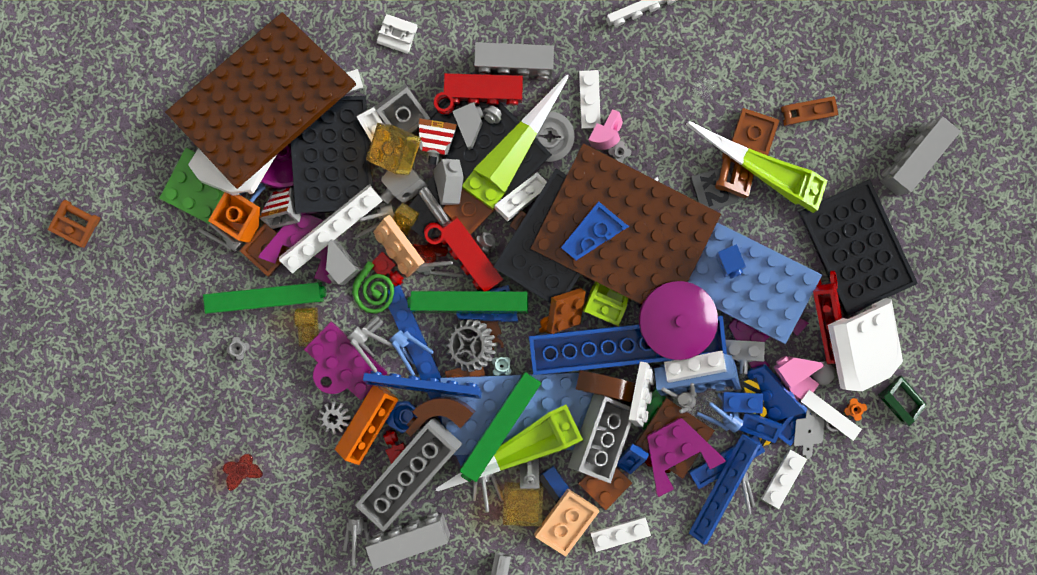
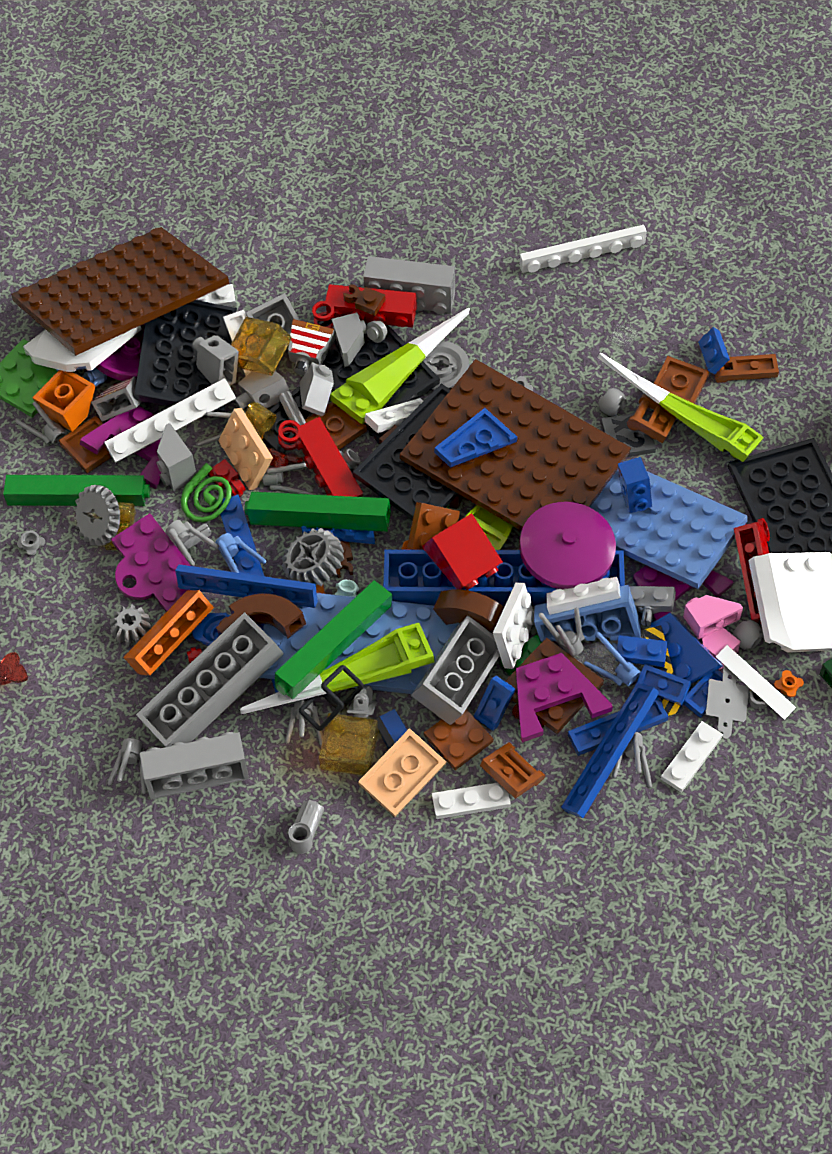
camera: 10 degrees right, 30 degrees down
(287, 325) = (104, 504): none -> light grey gear
(358, 166) = (216, 359): none -> light grey torso
(397, 33) = (283, 257): white piece -> none
(481, 90) = (366, 300): none -> reddish brown plate
(513, 494) = (332, 698): none -> black piece
(589, 99) = (491, 336): white plate -> none
(594, 340) = (463, 553): none -> red slope
(606, 136) = (509, 361): bright pink brick -> none
(646, 514) = (511, 770): none -> dark orange plate
(699, 161) = (612, 402): none -> light grey piece
(782, 99) = (713, 350): none -> blue plate

